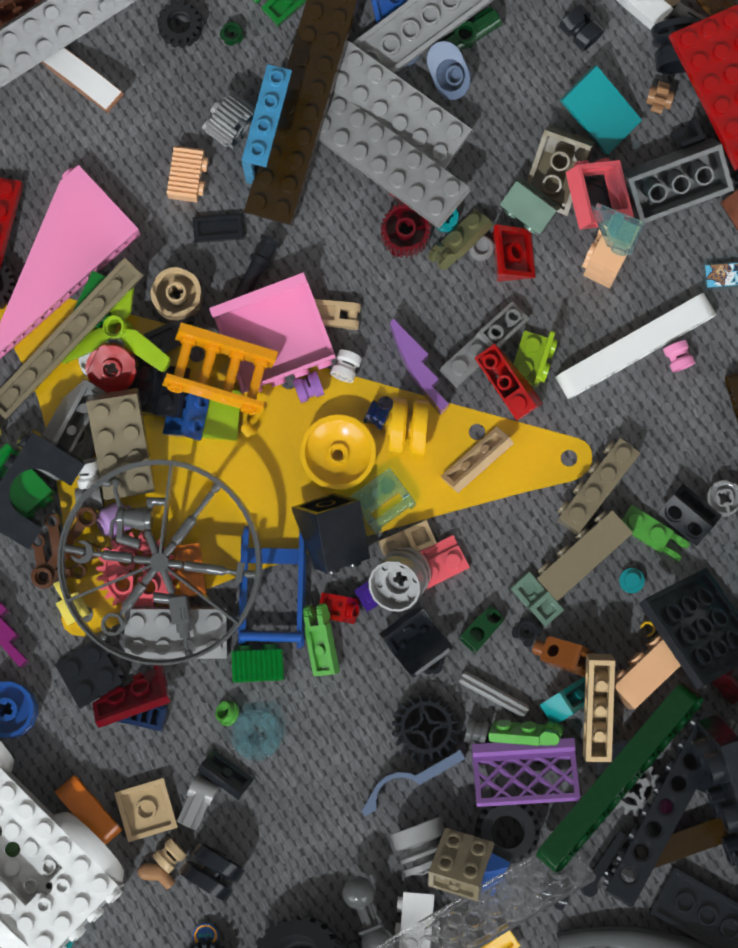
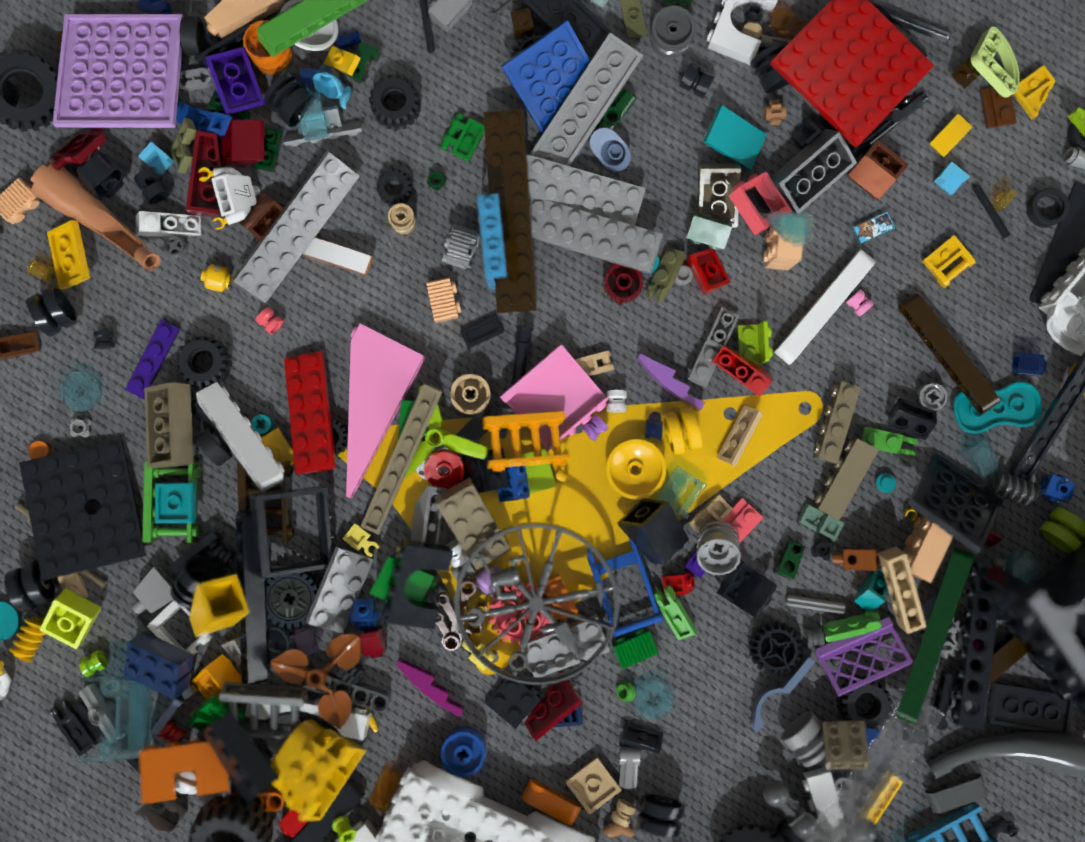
camera: 20 degrees left, 5 degrees up
(174, 62) = (402, 218): none -> tan wheel

